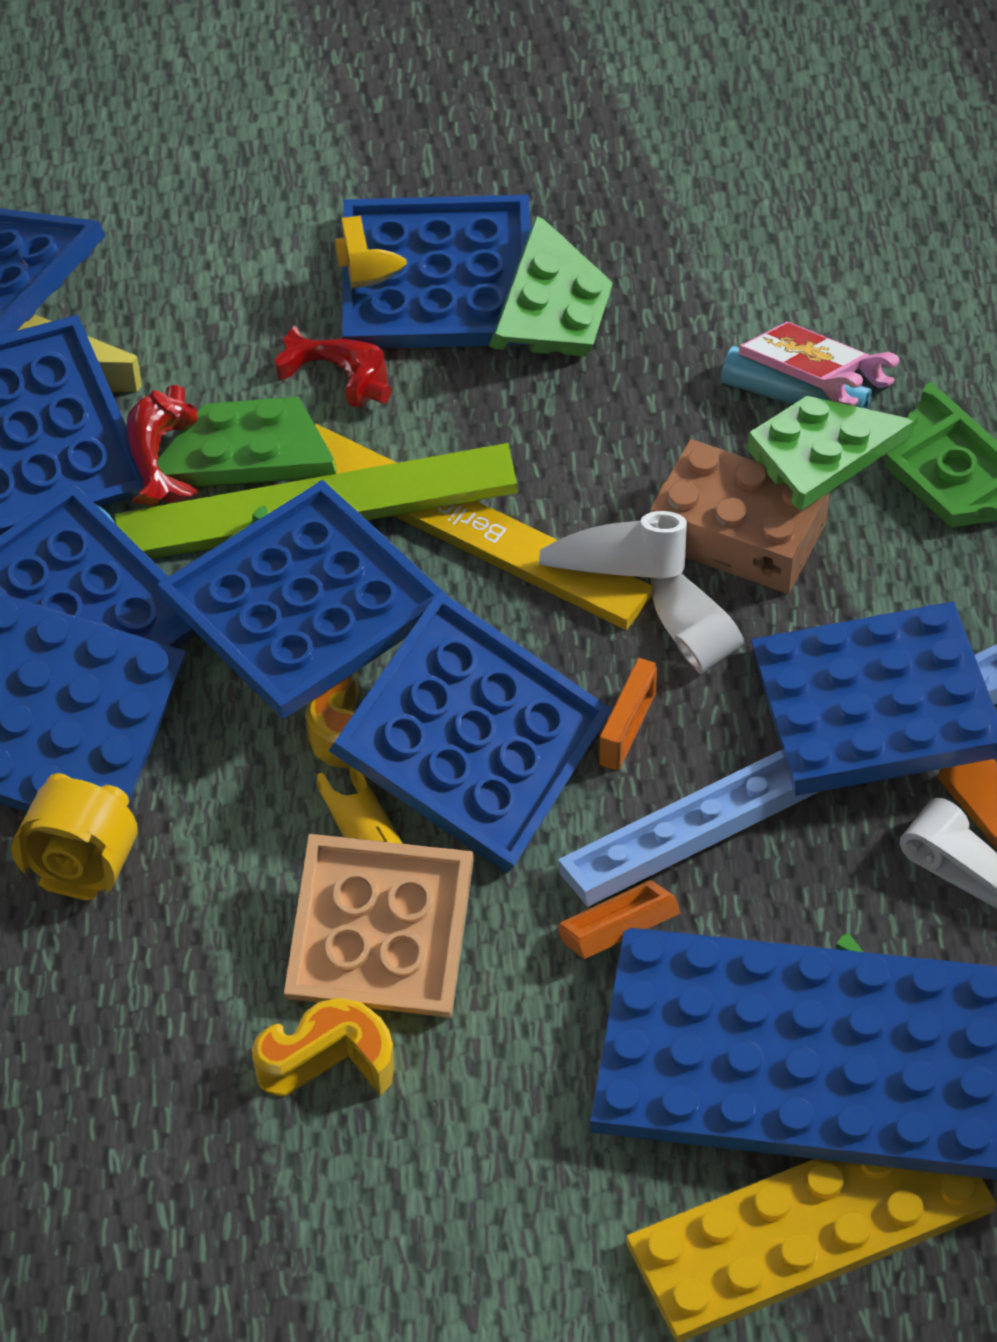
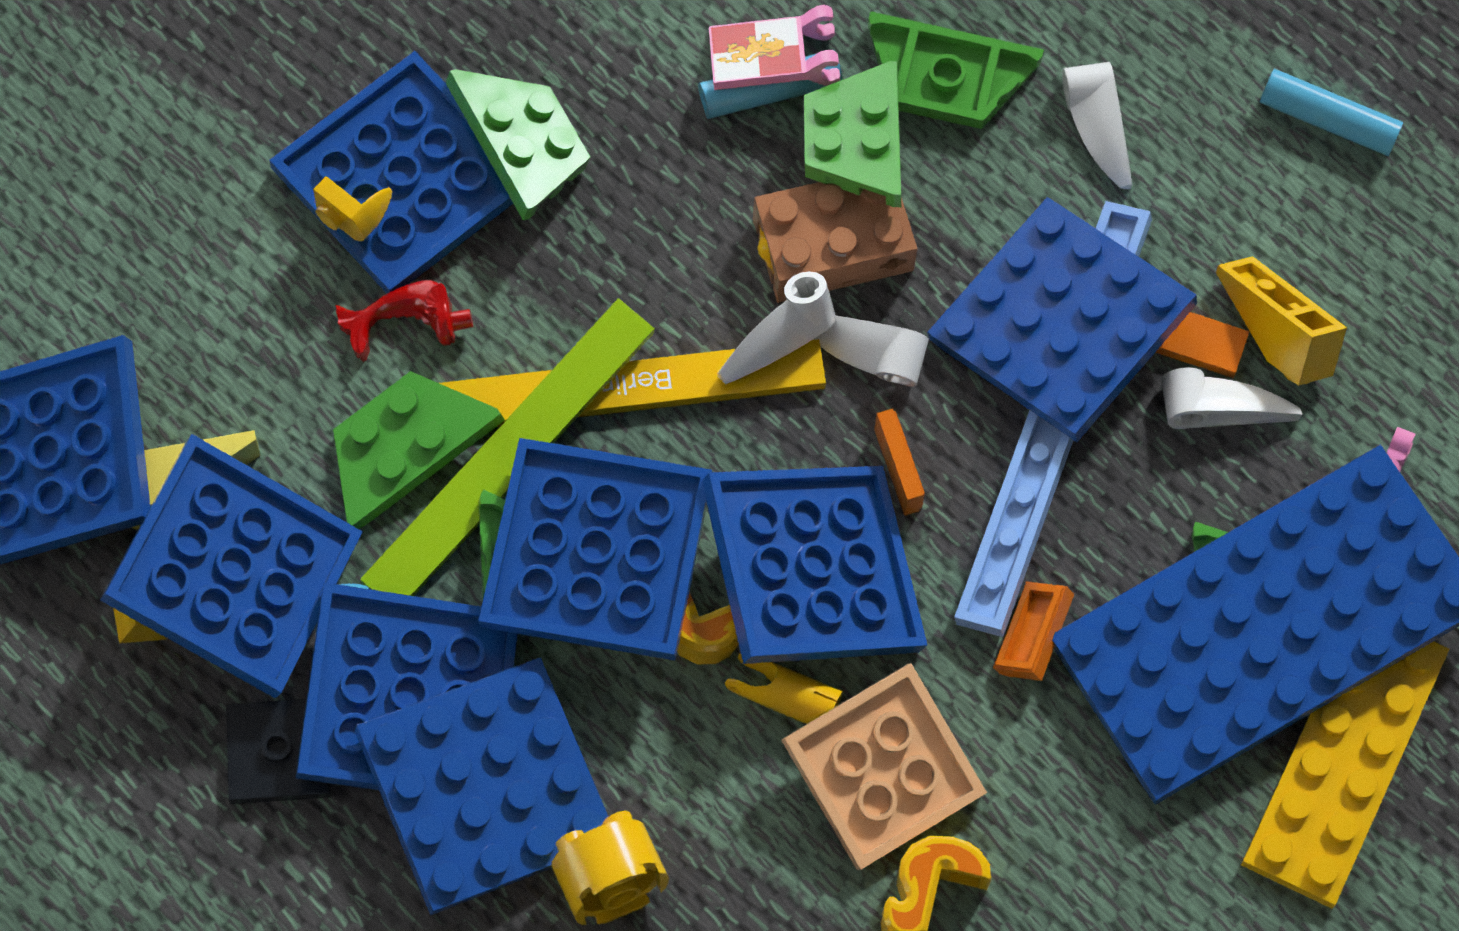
camera: 45 degrees left, 15 degrees up
(145, 427) = (321, 486): red animal -> none

